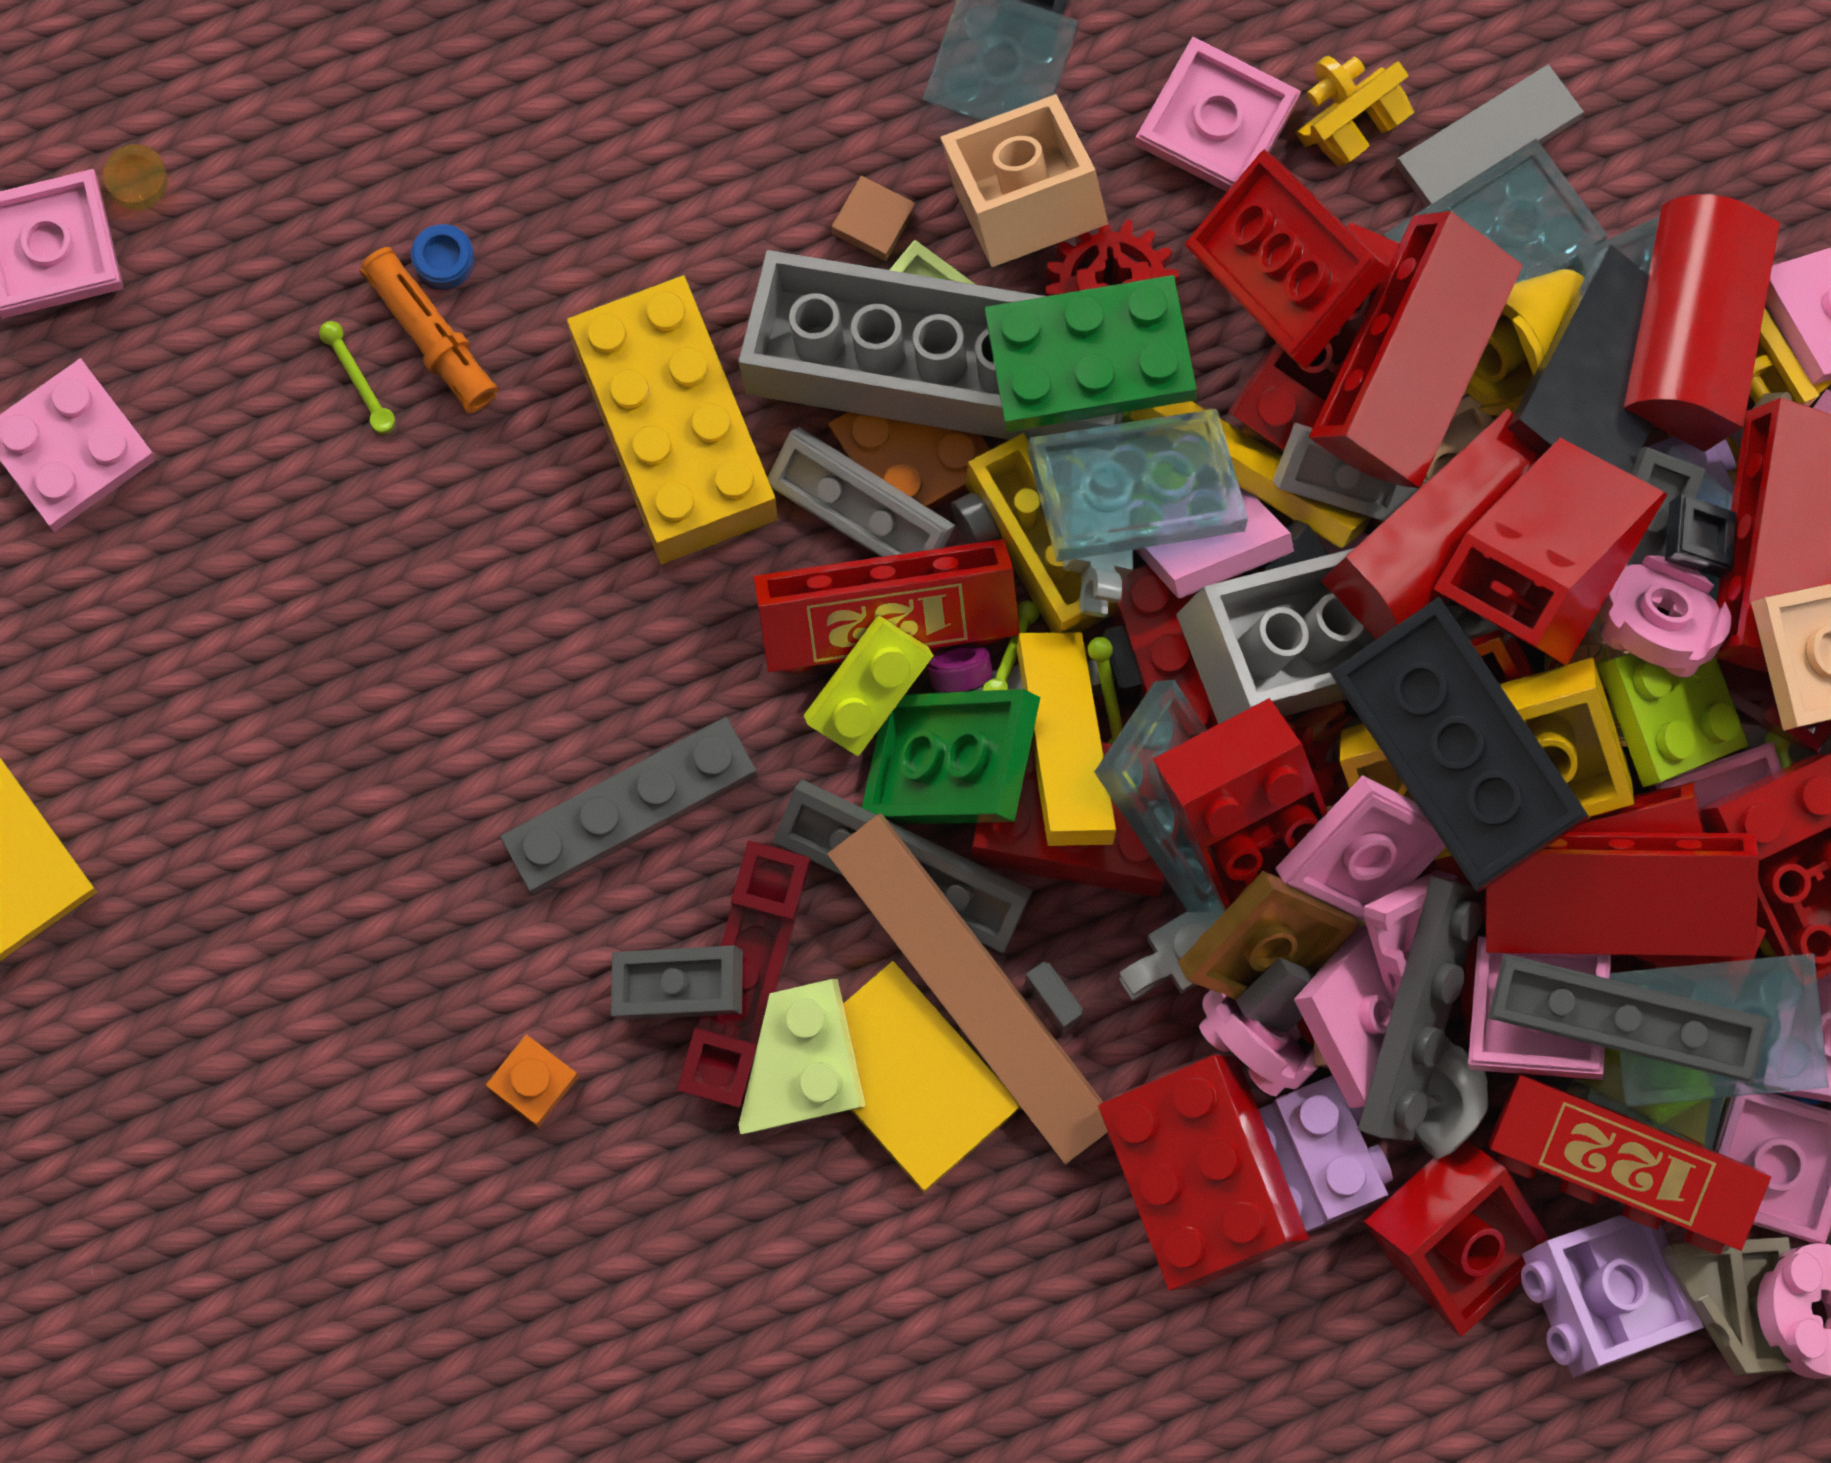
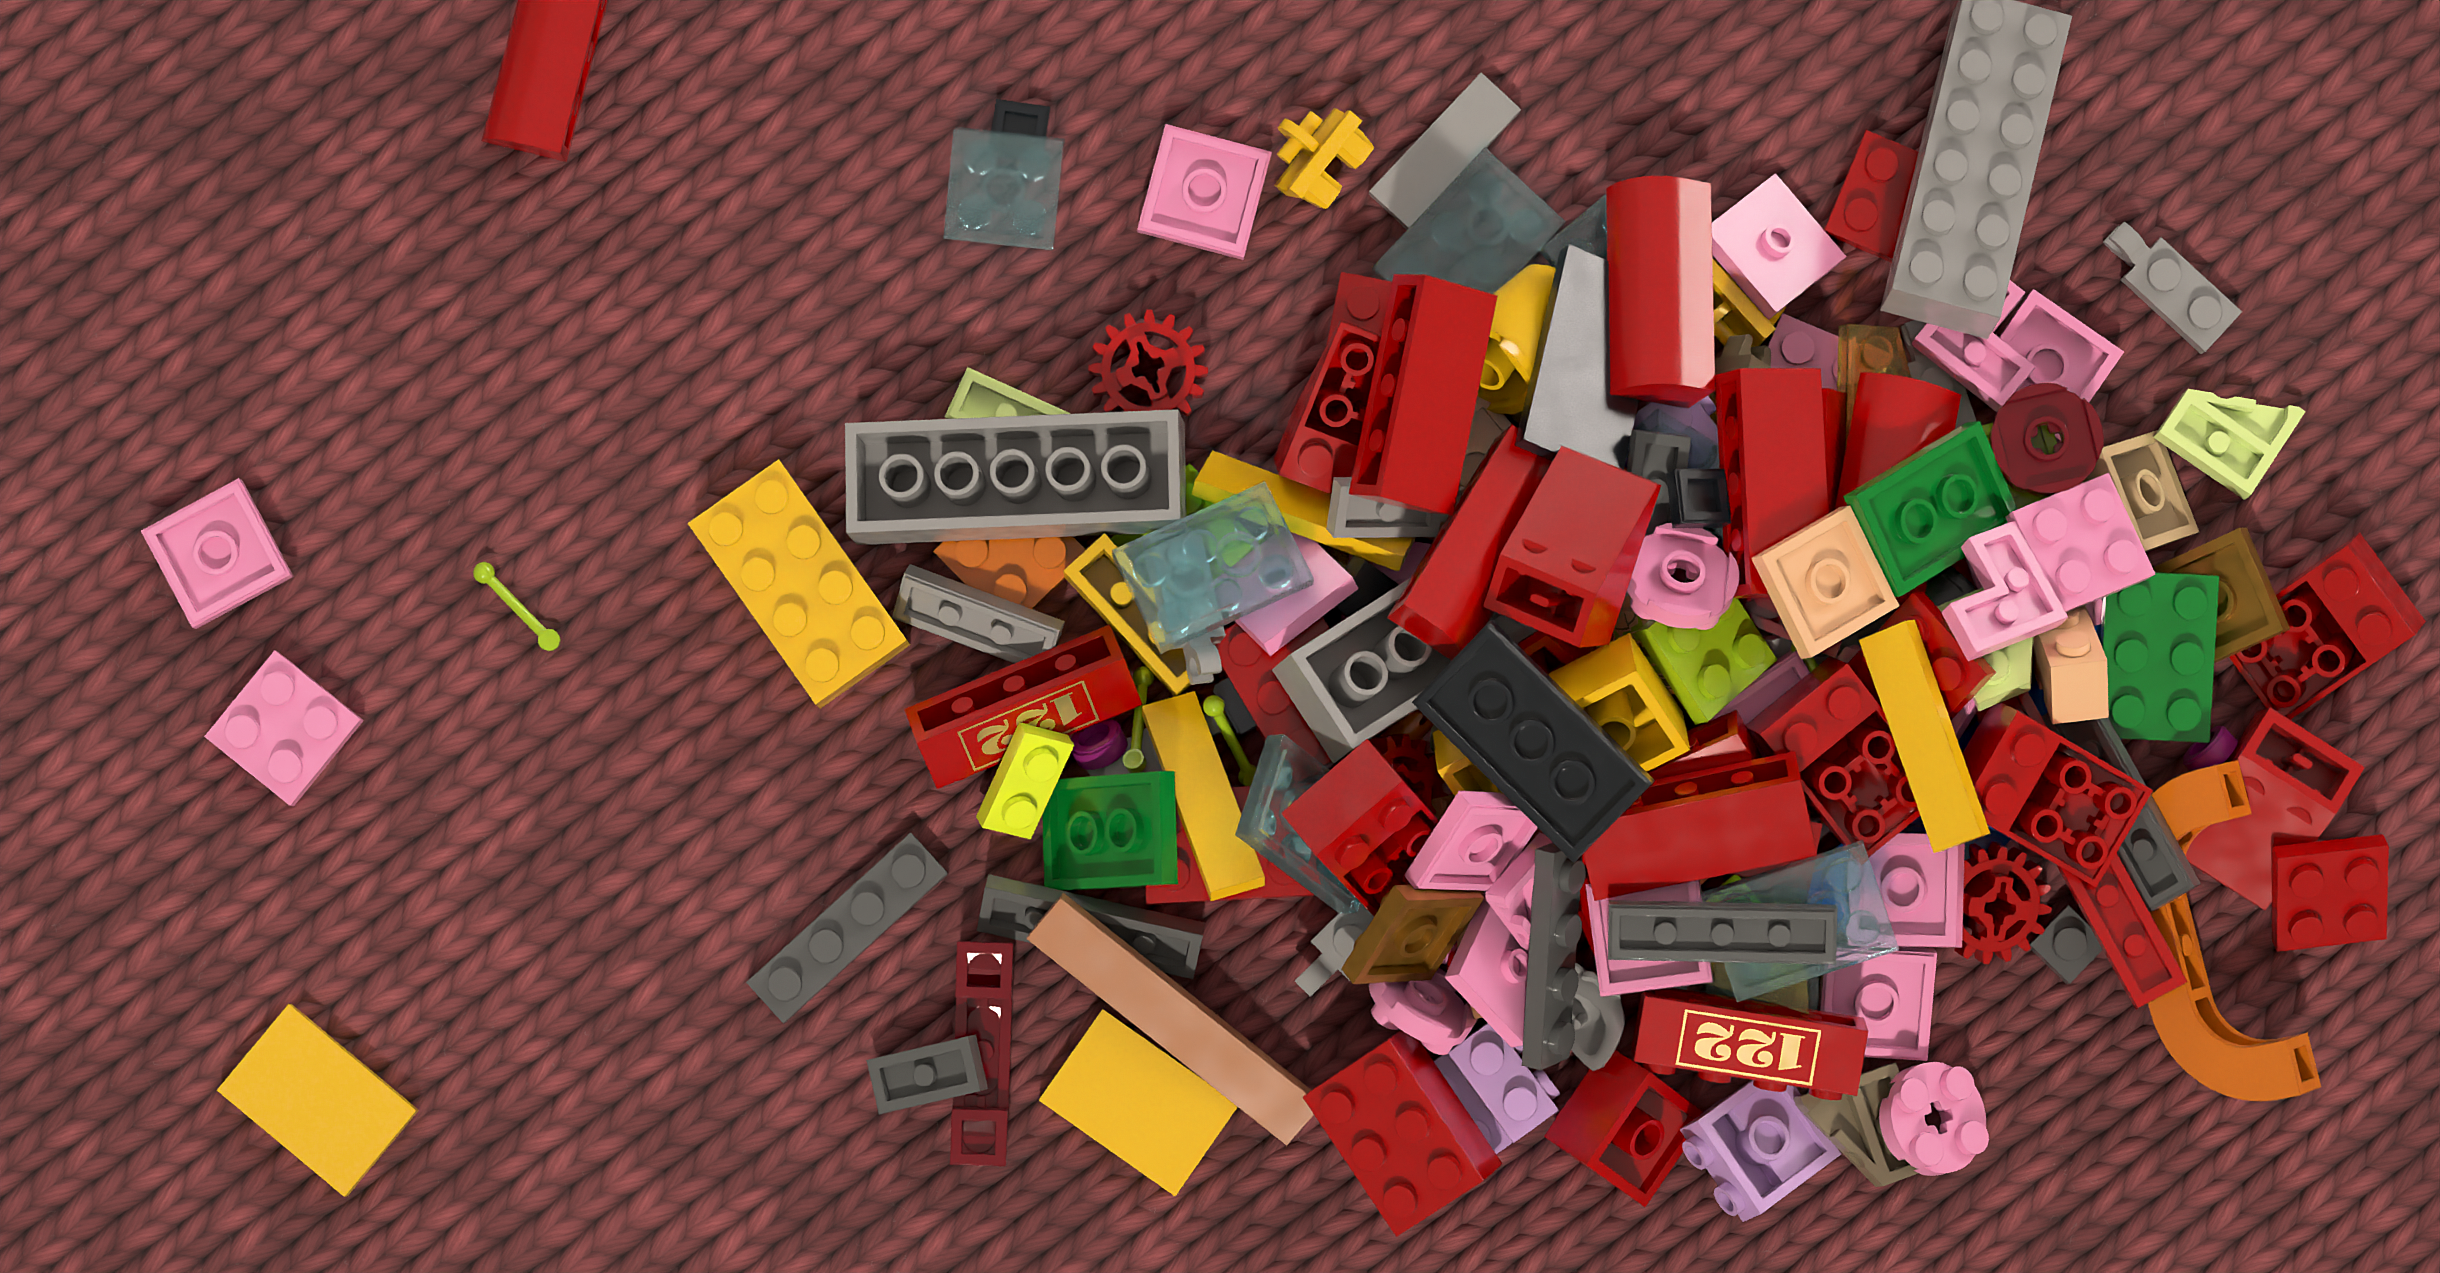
camera: 15 degrees left, 10 degrees up
(135, 177) = (275, 471): clear yellow tile -> none
(442, 257) = (562, 480): blue tile -> none
(443, 349) = (569, 552): orange pin -> none
(532, 1081) = (826, 1182): orange plate -> none
(802, 1060) = (1048, 1114): yellowish green wing -> none
(873, 218) = (927, 354): nougat tile -> none
(974, 519) = (1081, 611): dark grey tile -> none
(1024, 180) = (1050, 300): light nougat brick -> none
(1053, 998) = (1244, 1009): dark grey tile -> none
(1090, 353) = (1145, 460): green plate -> none
(1273, 994) = (1428, 969): dark grey tile -> none
(1286, 258) = (1292, 325): red tile -> none

